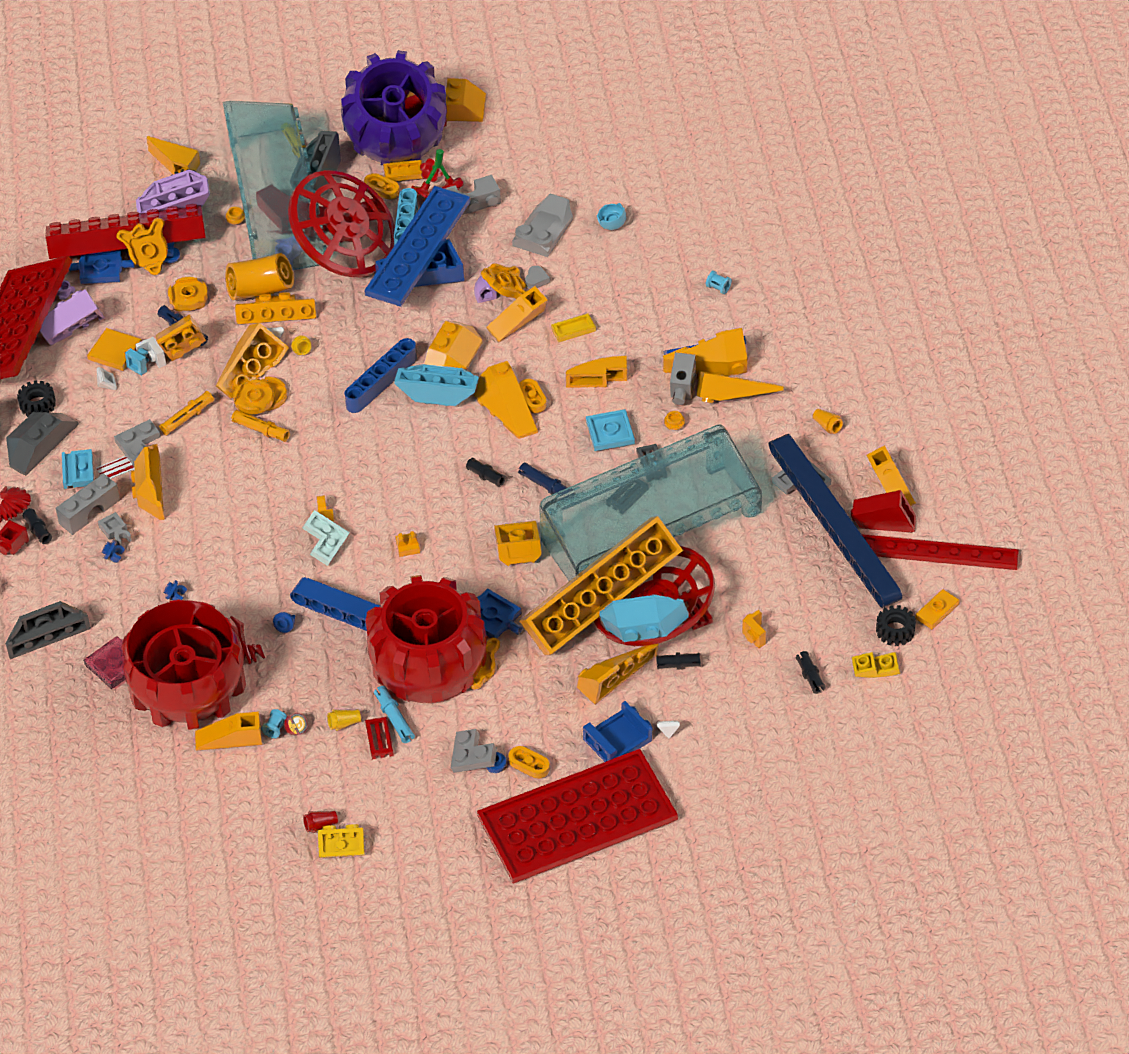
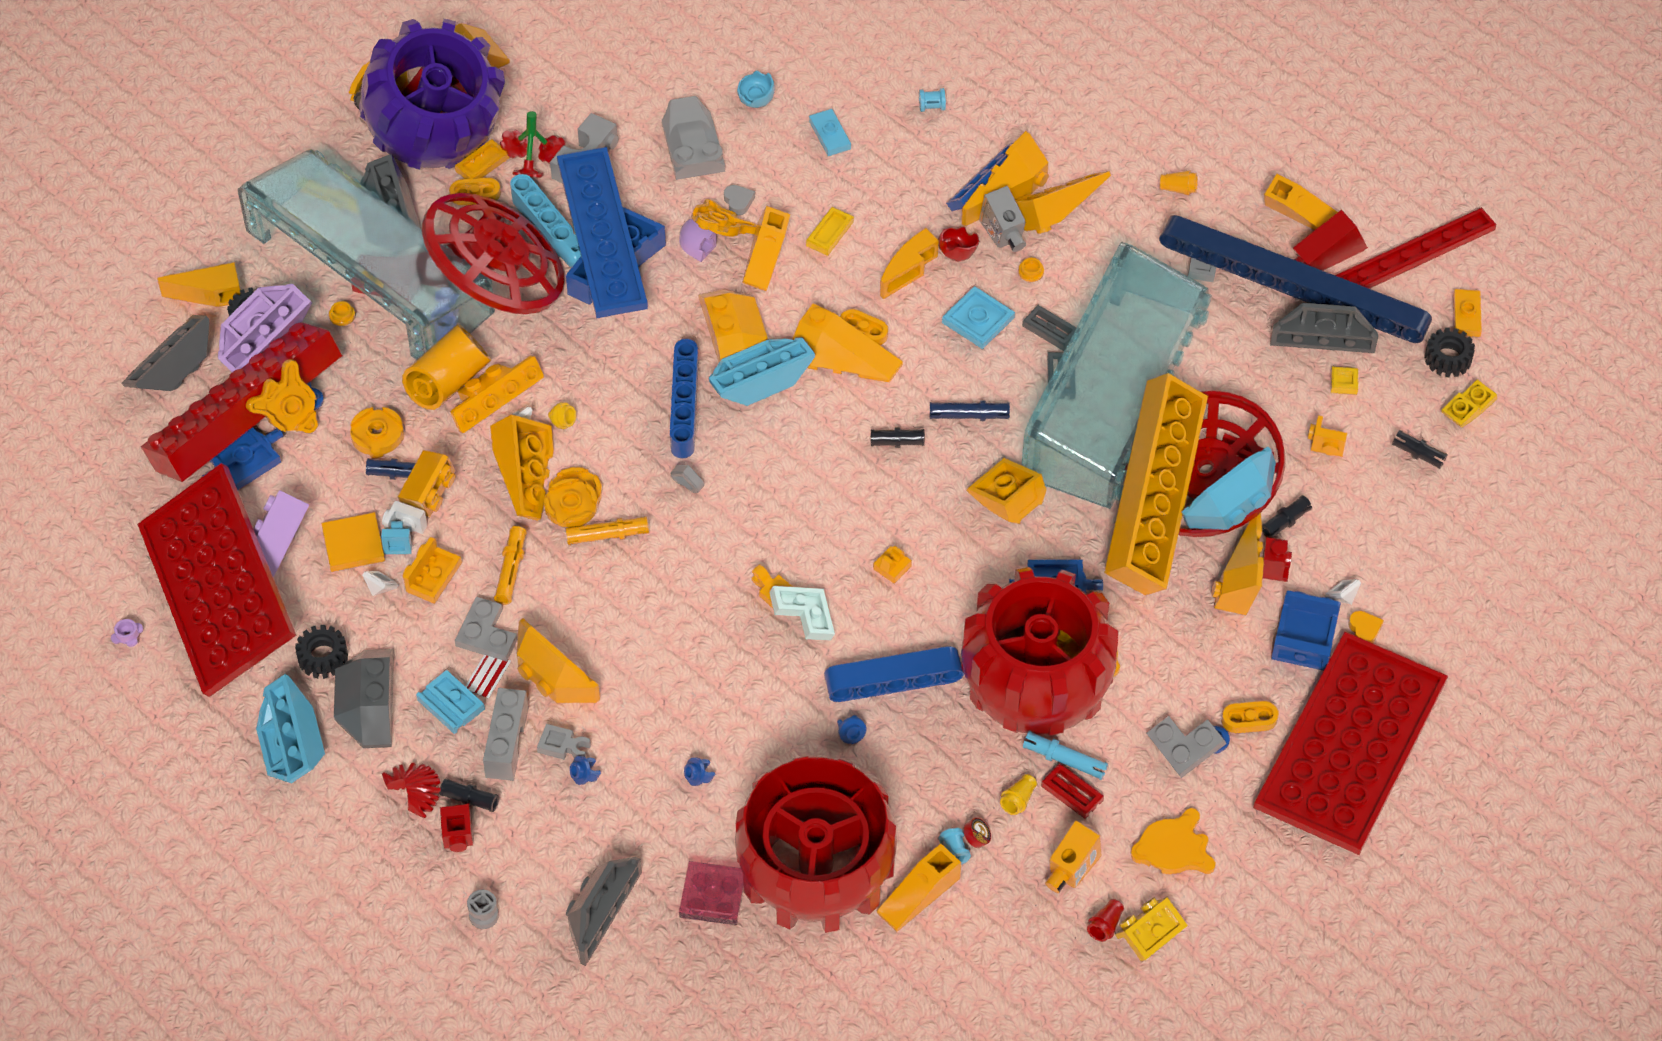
camera: 40 degrees left, 5 degrees up
(111, 188) = (173, 357): none -> dark grey wedge
(137, 388) = (430, 571): none -> light orange bracket
(333, 772) = (1074, 857): none -> light orange torso
(336, 423) = (687, 477): none -> light grey tile
(407, 806) = (1174, 846): none -> light orange tile
(635, 268) = (830, 132): none -> medium azure plate
(641, 377) = (957, 243): none -> red hair
(641, 681) = (1276, 559): none -> red brick
(660, 756) = (1365, 625): none -> light orange tile
(808, 603) = (1344, 380): none -> yellow tile
(822, 561) = (1325, 328): none -> dark grey wedge

